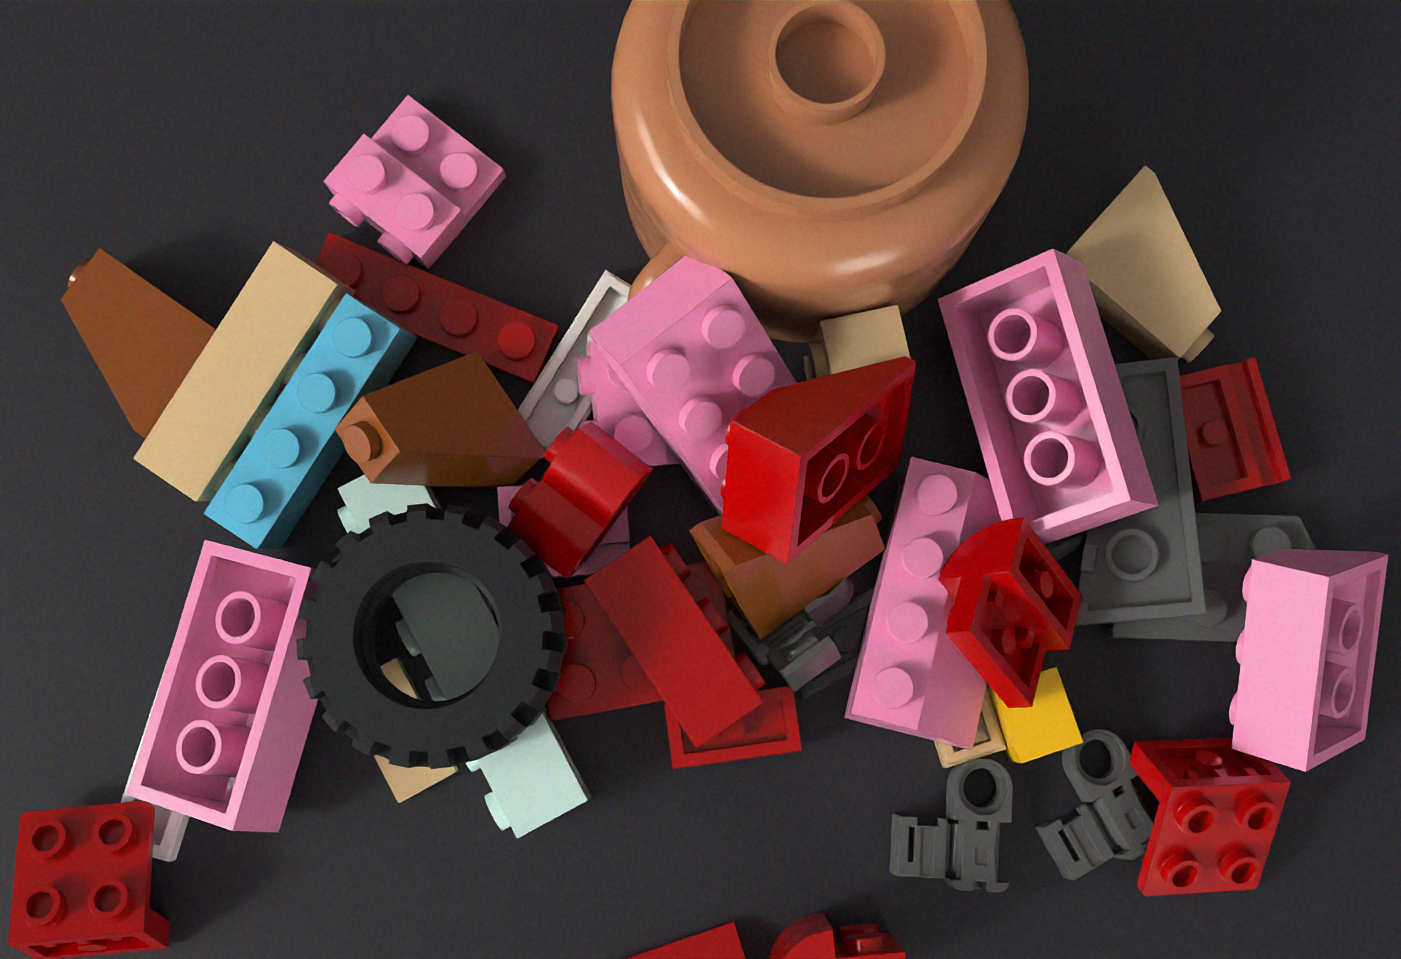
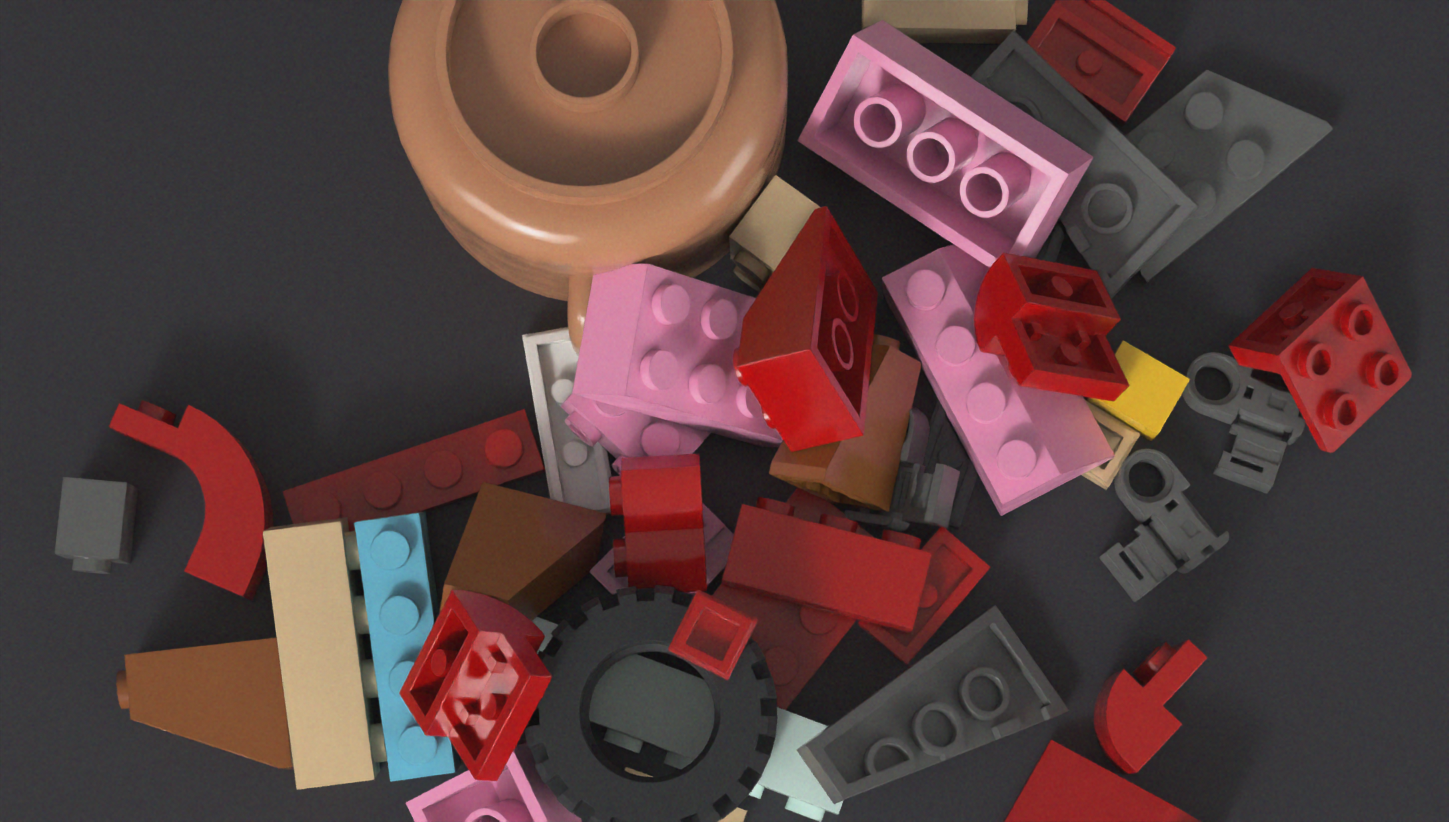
camera: 35 degrees left, 0 degrees up
(172, 138) = (96, 523): none -> dark grey brick
(292, 196) = (234, 491): none -> red arch
(321, 492) = (478, 680): none -> red brick
(413, 183) = (313, 396): bright pink plate -> none
(527, 618) = (713, 634): none -> red tile
(662, 824) = (943, 705): none -> dark grey wing
(1307, 654) = (1297, 170): bright pink slope -> none

